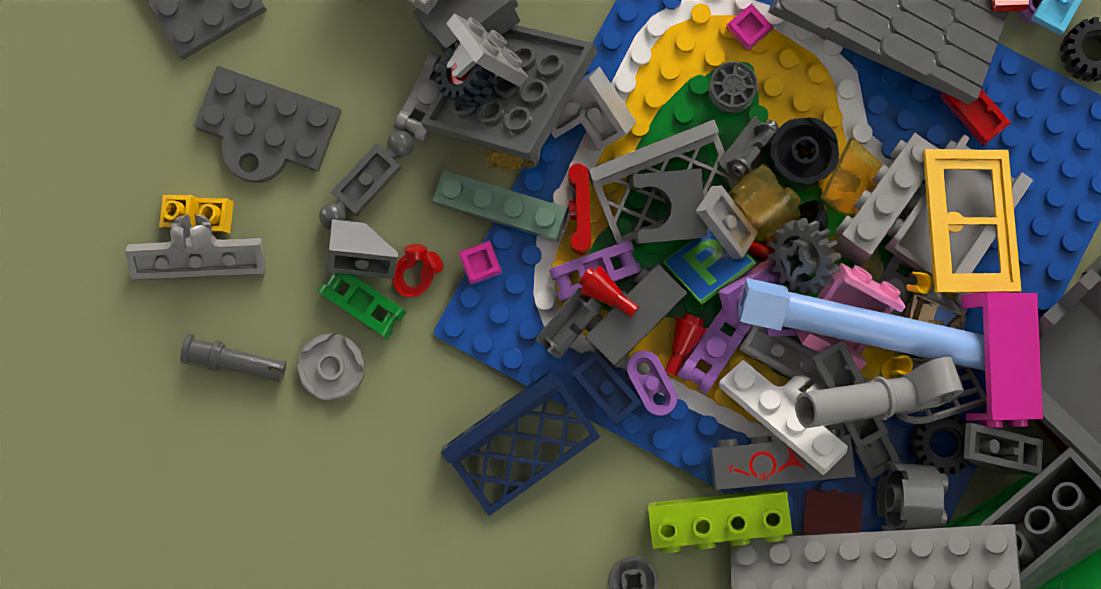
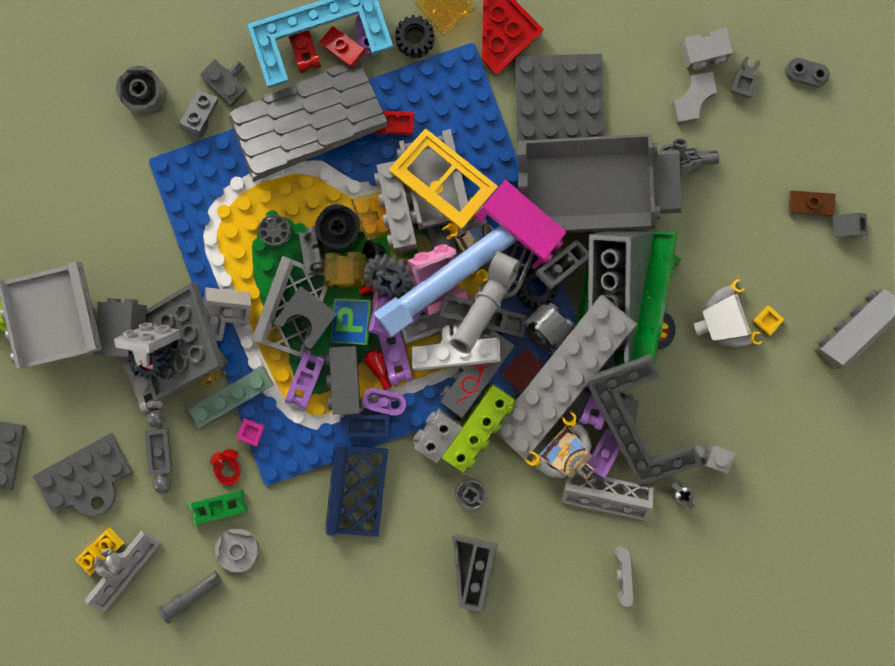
camera: 55 degrees left, 5 degrees up
(359, 251) = (191, 487): slope -> none
(568, 323) = (319, 416): dark grey hinge -> none
(580, 209) = (268, 360): red plate -> none
(601, 287) = (313, 385): red cone -> none
(668, 479) = (437, 435): none -> light grey brick
(726, 222) = (338, 297): light grey plate -> none
(749, 27) = (252, 194): dark pink tile -> none

